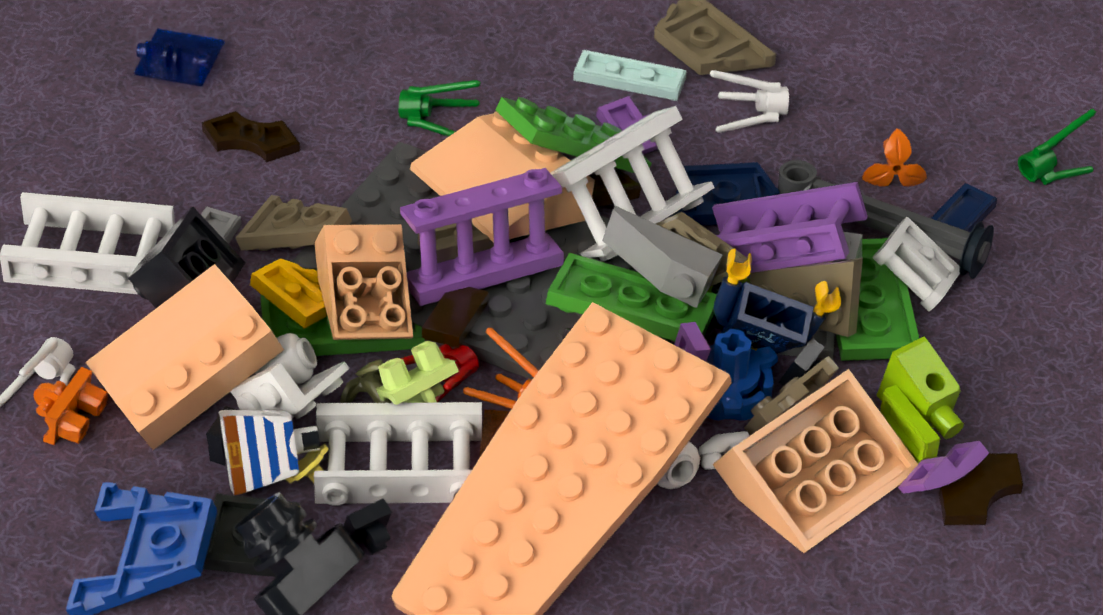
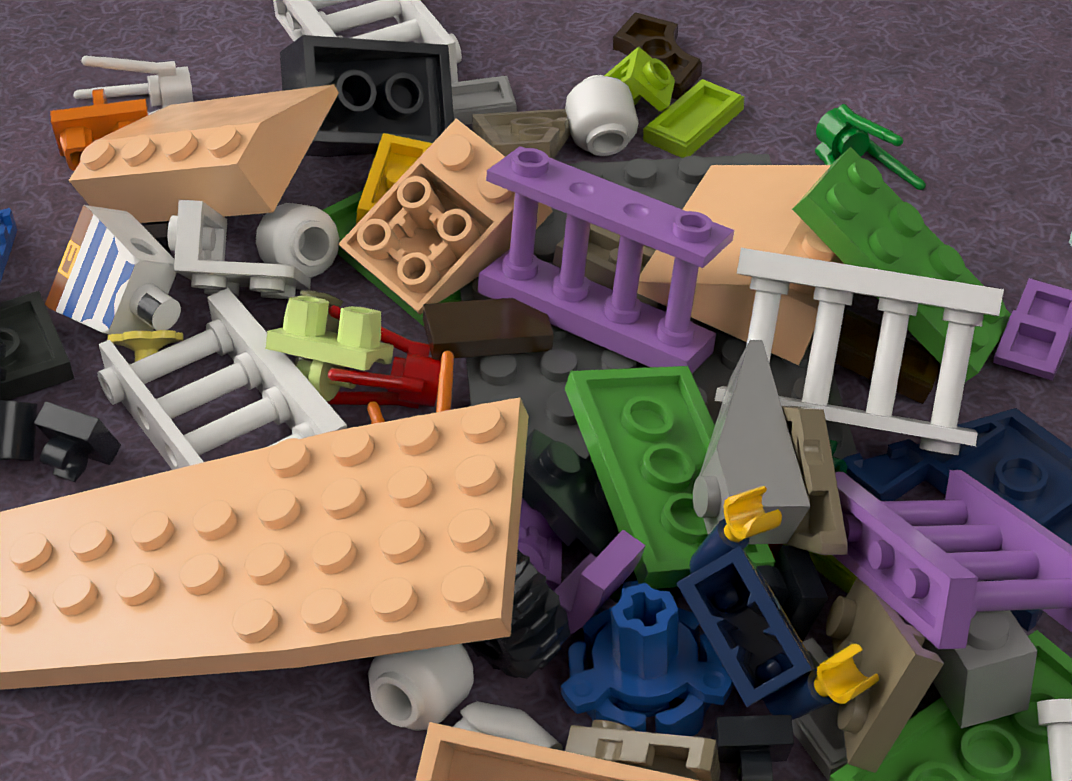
camera: 60 degrees right, 0 degrees up
(281, 160) = (645, 78): none -> lime bracket
(303, 181) = (601, 115): none -> white head
(328, 154) = (693, 119): none -> lime tile

